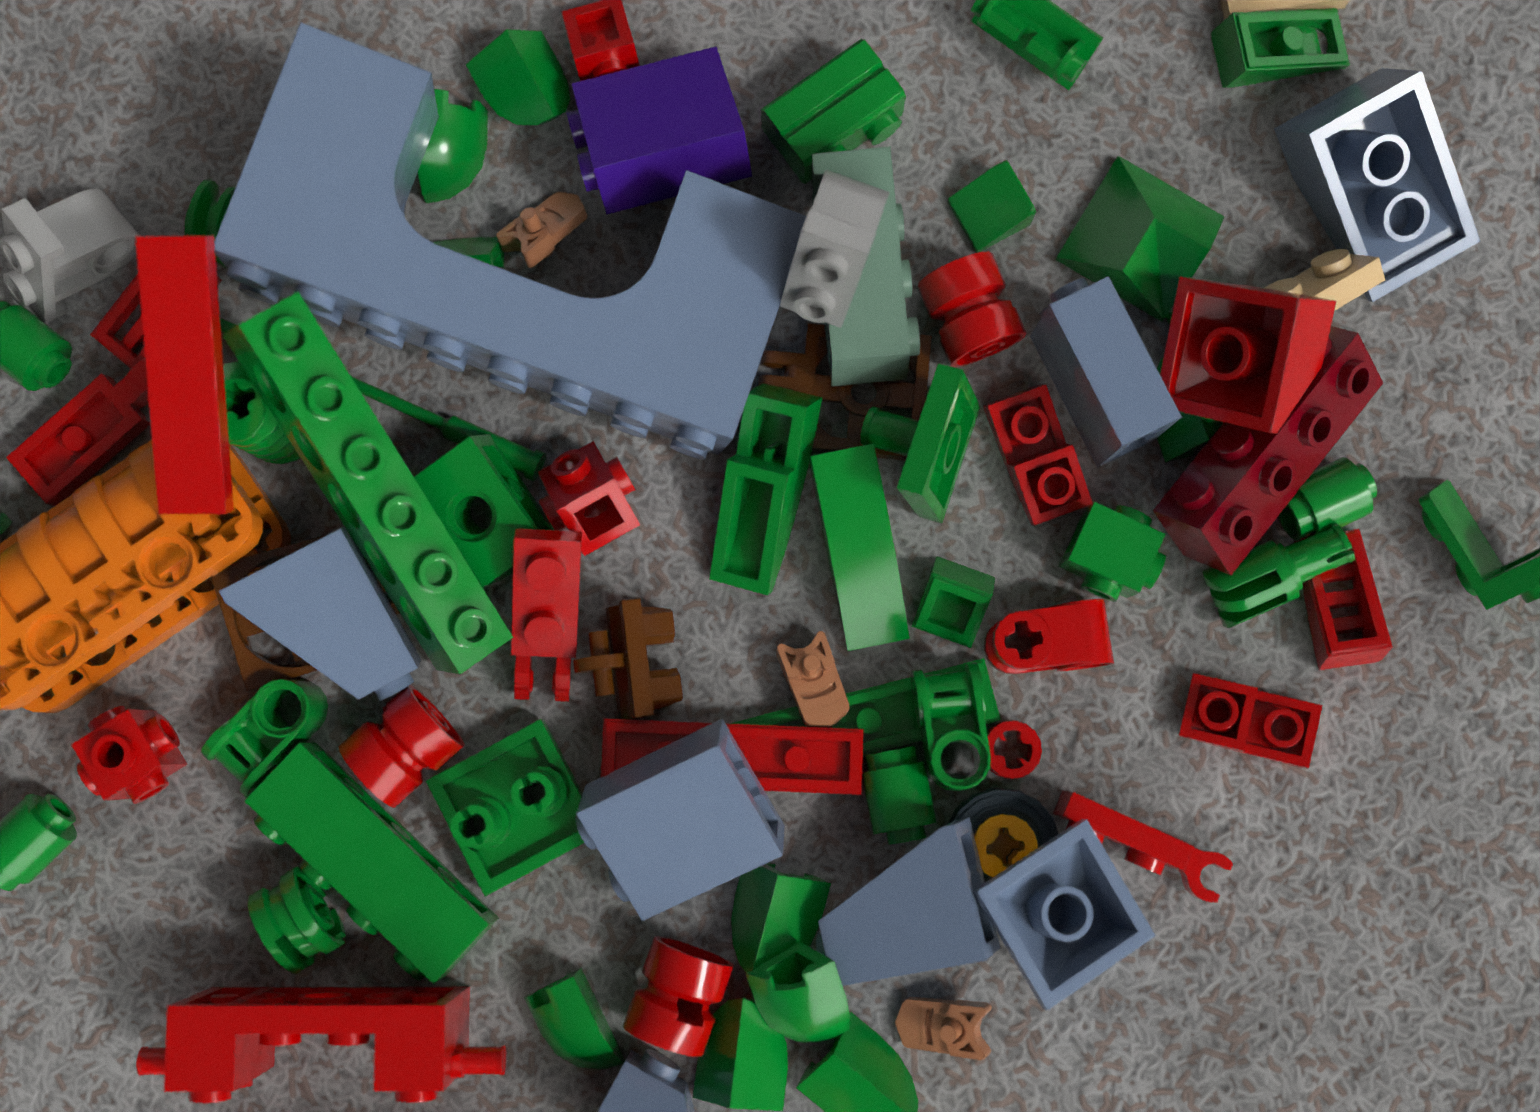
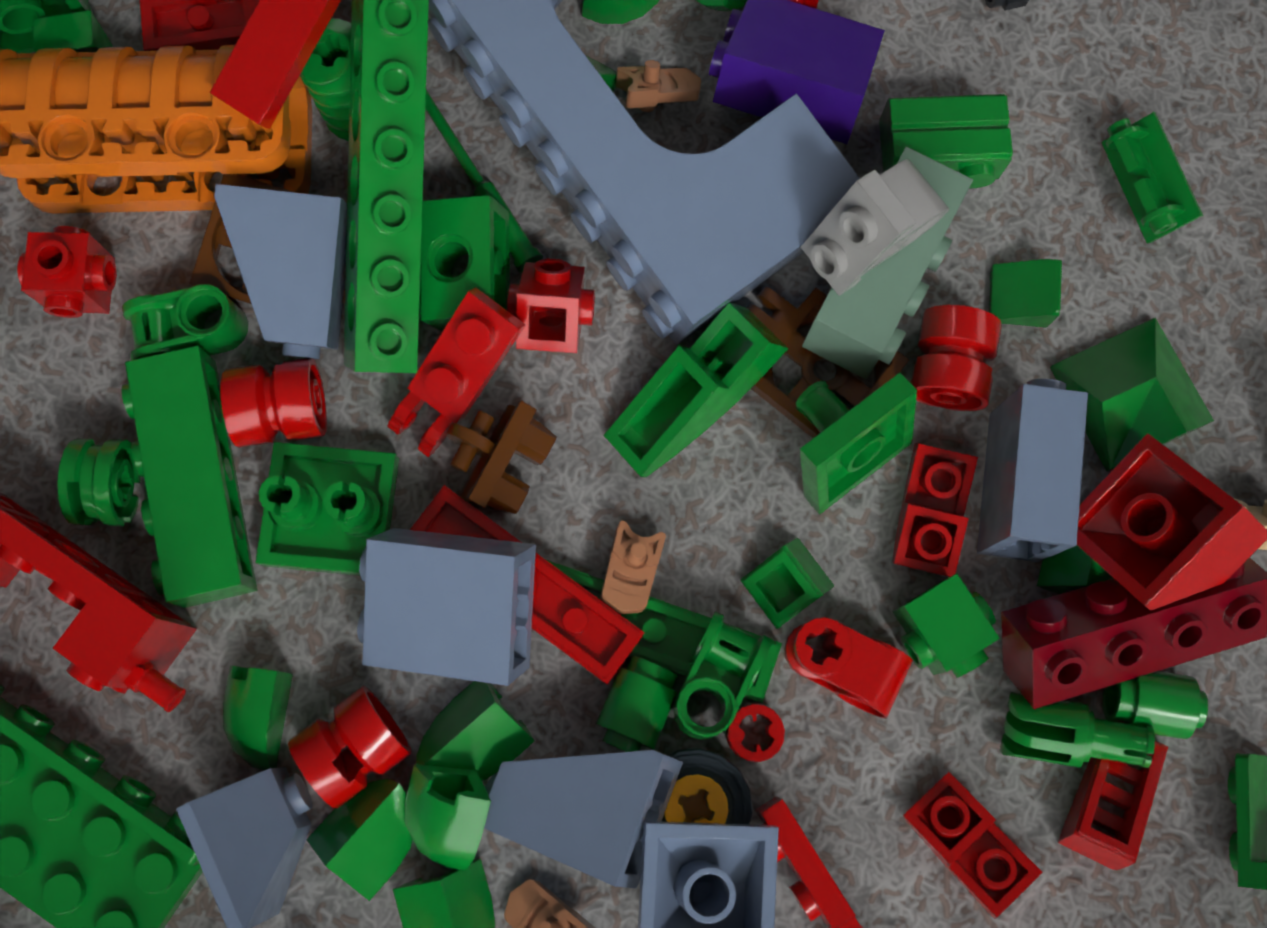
camera: 30 degrees right, 5 degrees down
(860, 546) = (740, 486): green slope -> none

